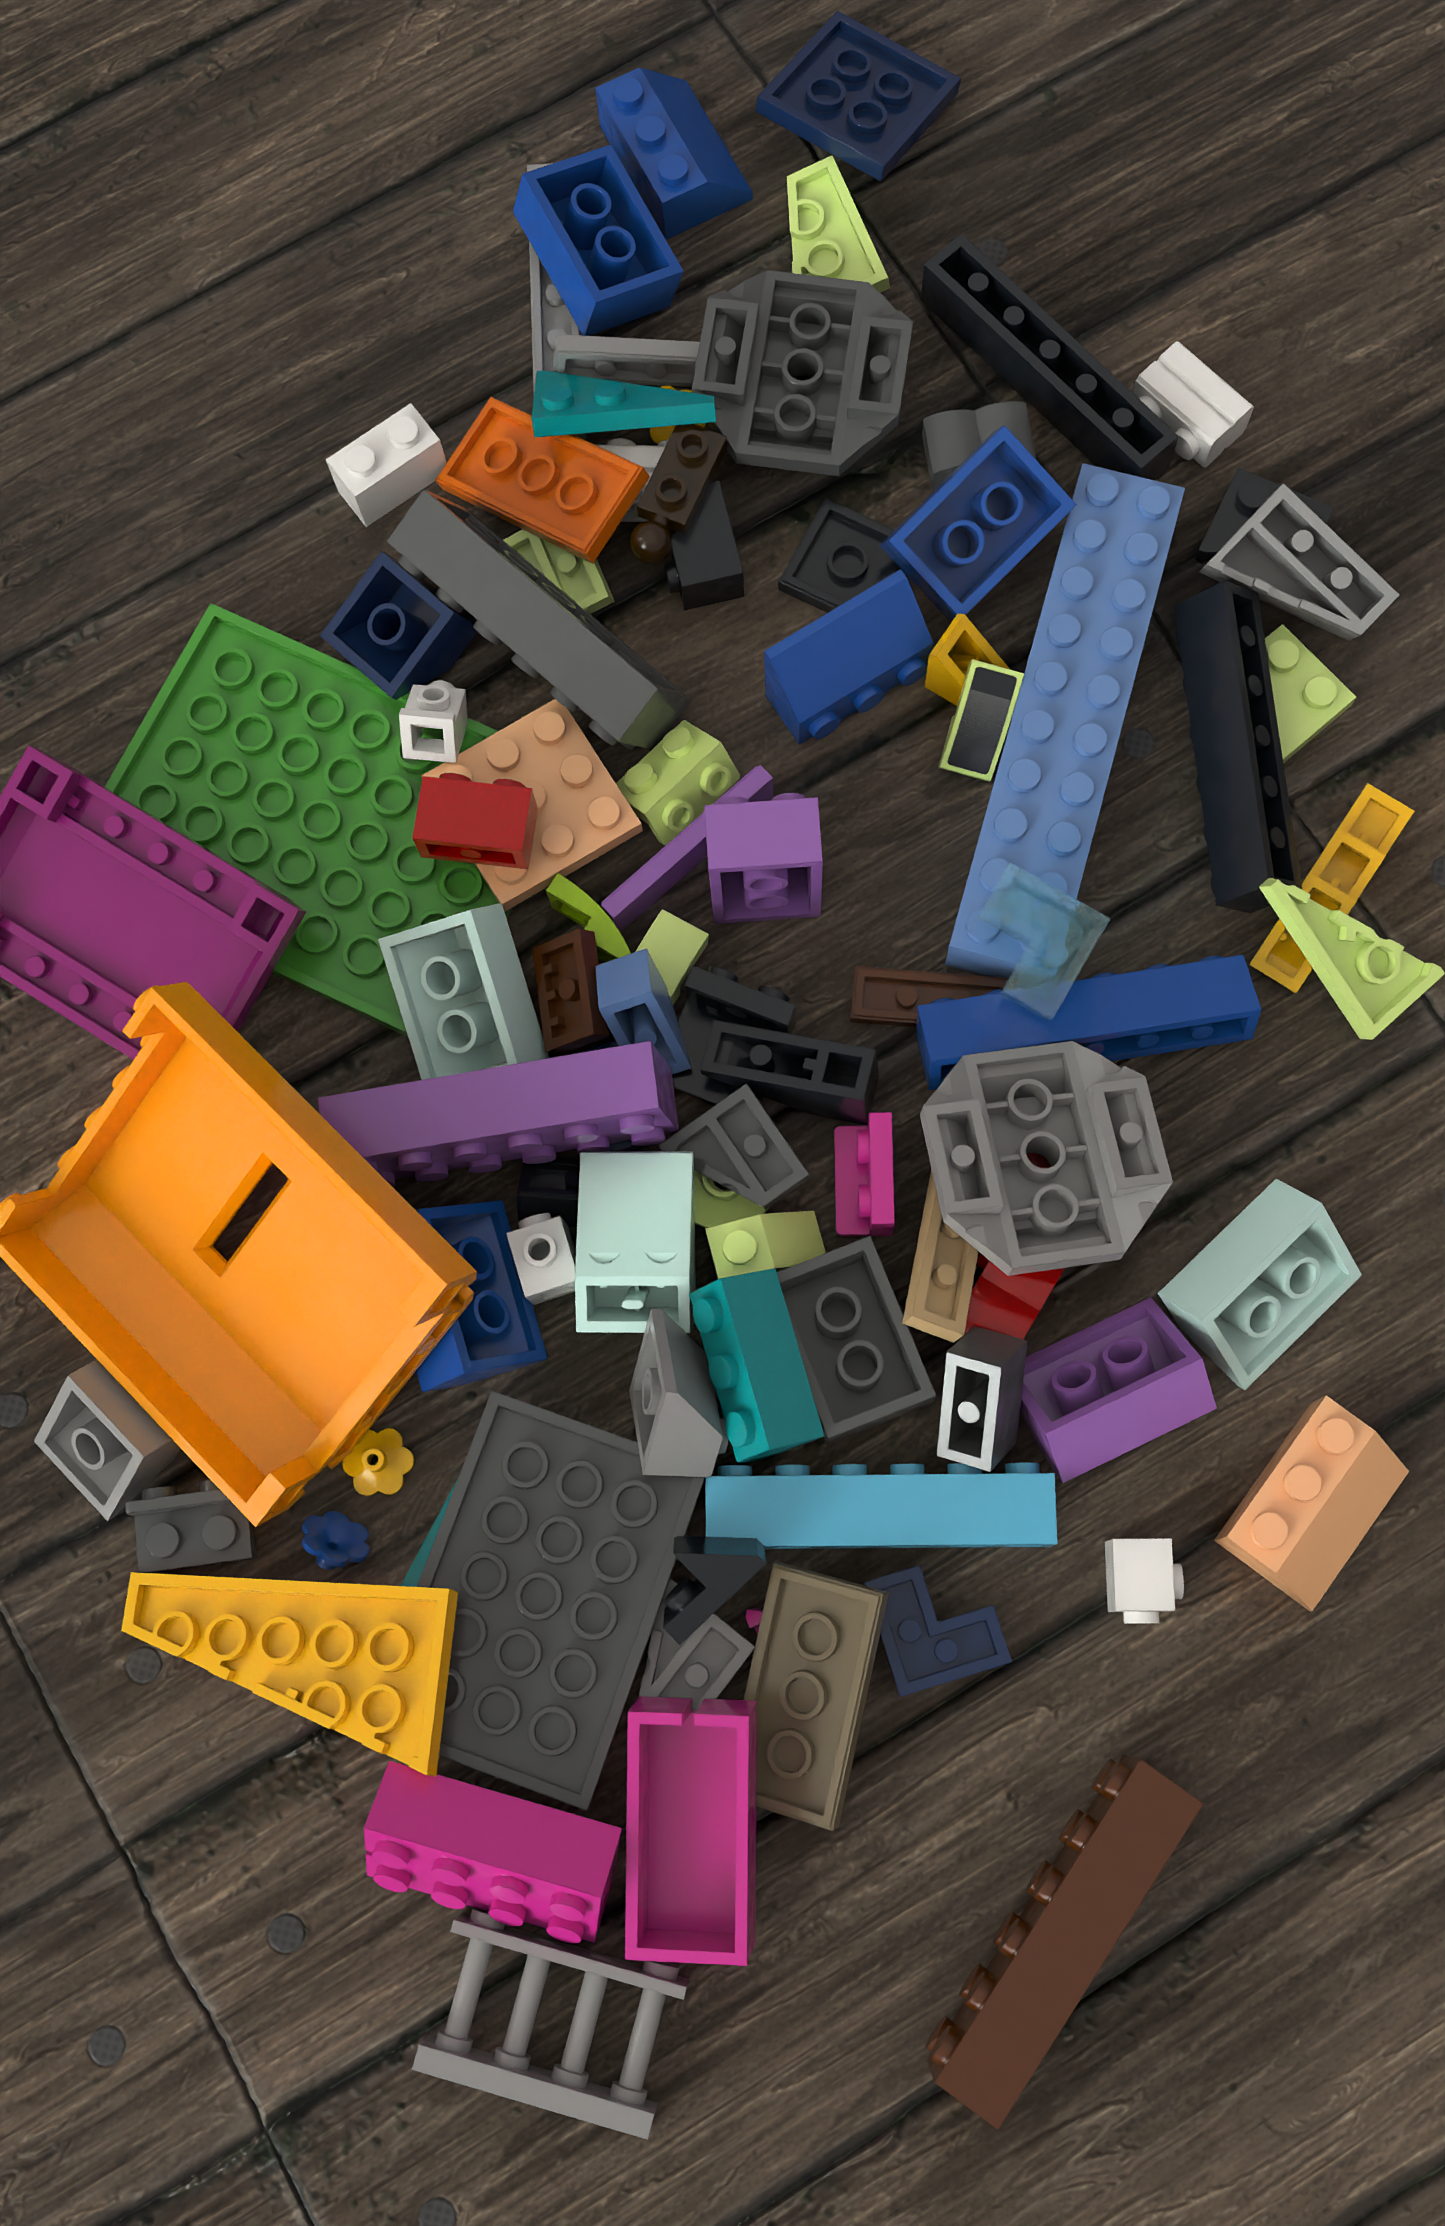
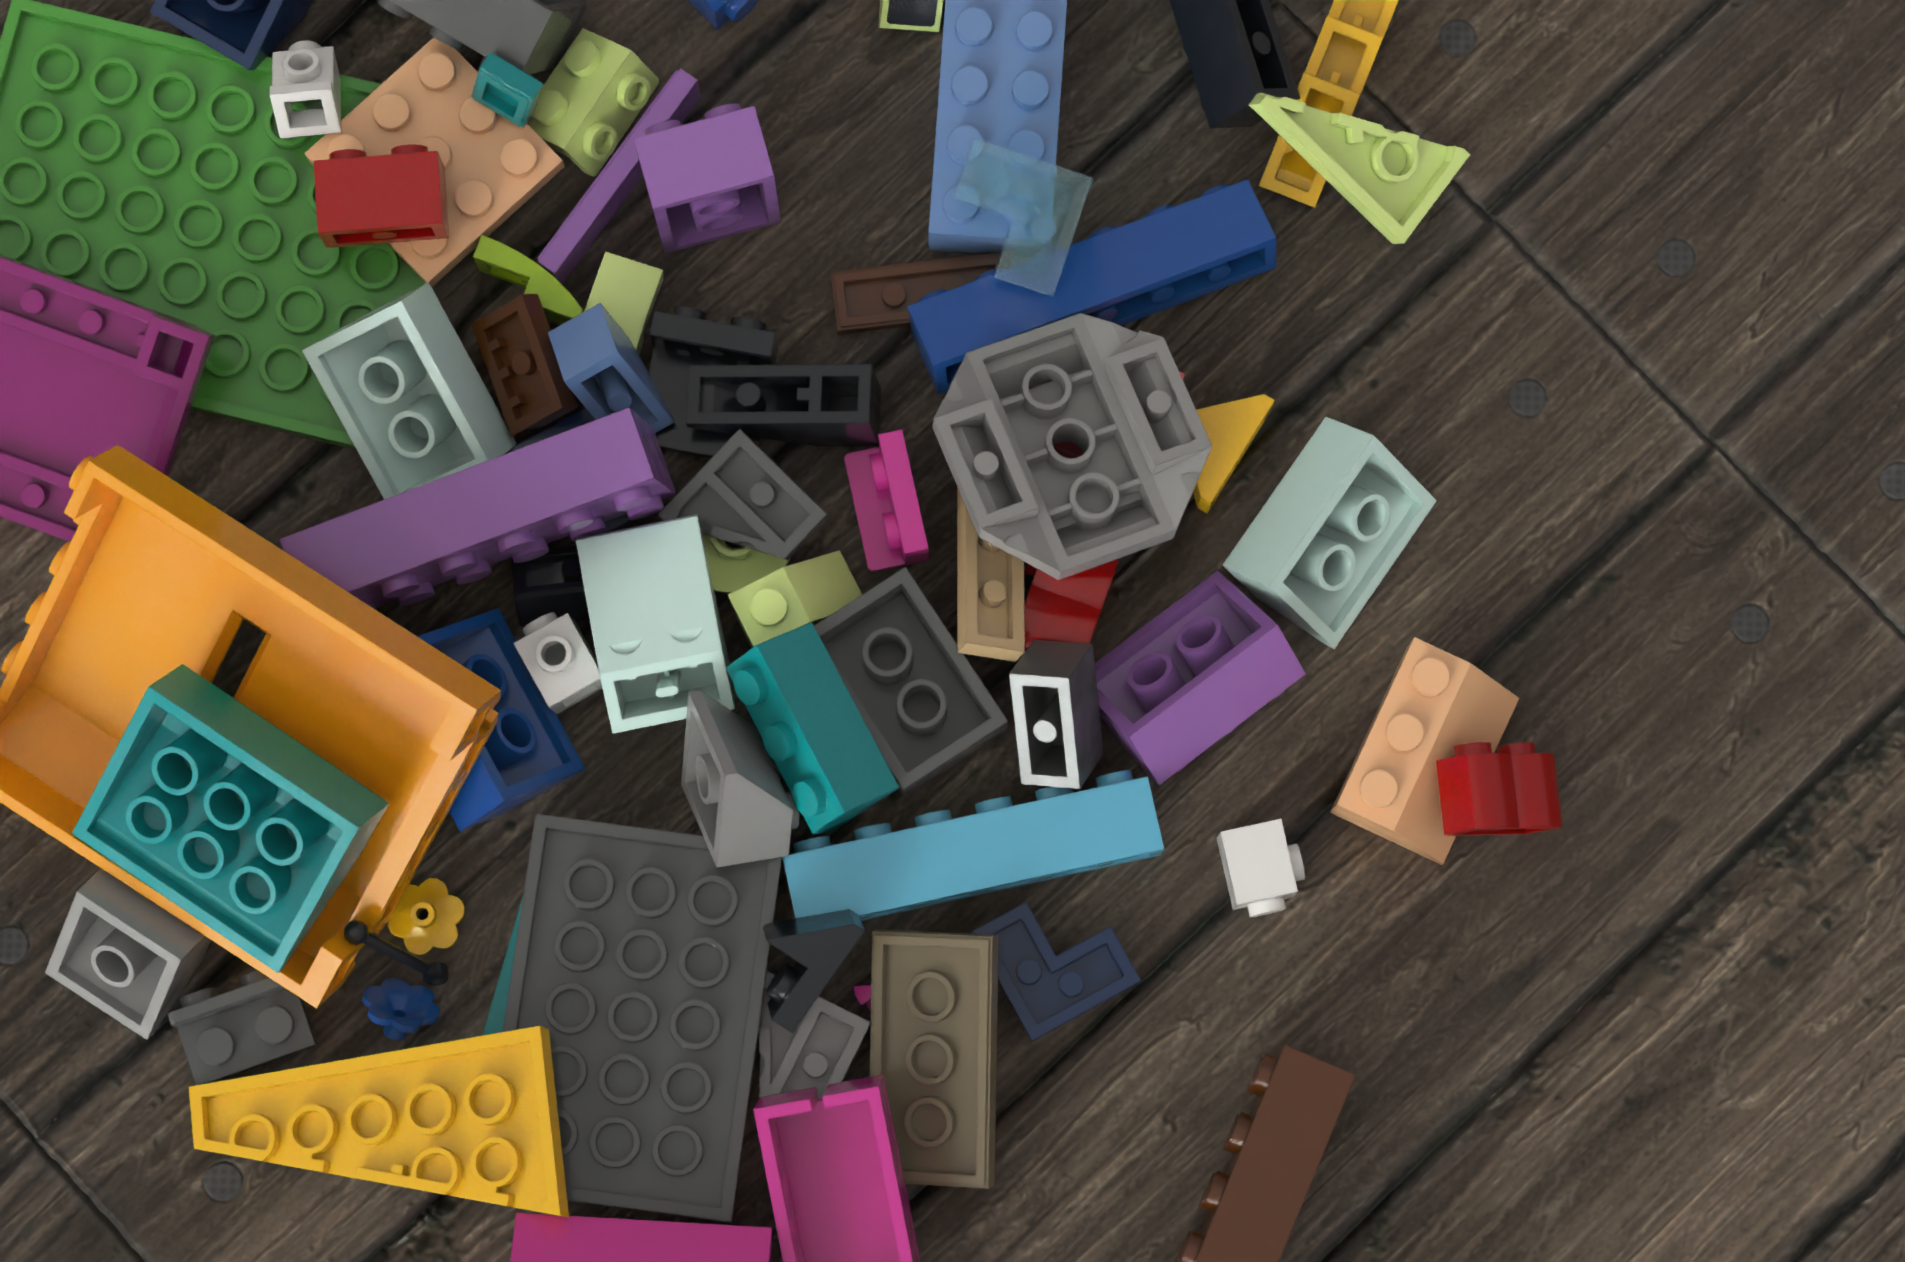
camera: 20 degrees left, 5 degrees up
(216, 1335) = (228, 816): none -> teal slope
(308, 1466) = (433, 972): none -> black hinge
(605, 751) = (506, 90): none -> teal tile
(1190, 1173) = (1231, 431): none -> yellow slope
(1379, 1555) = (1498, 791): none -> red brick

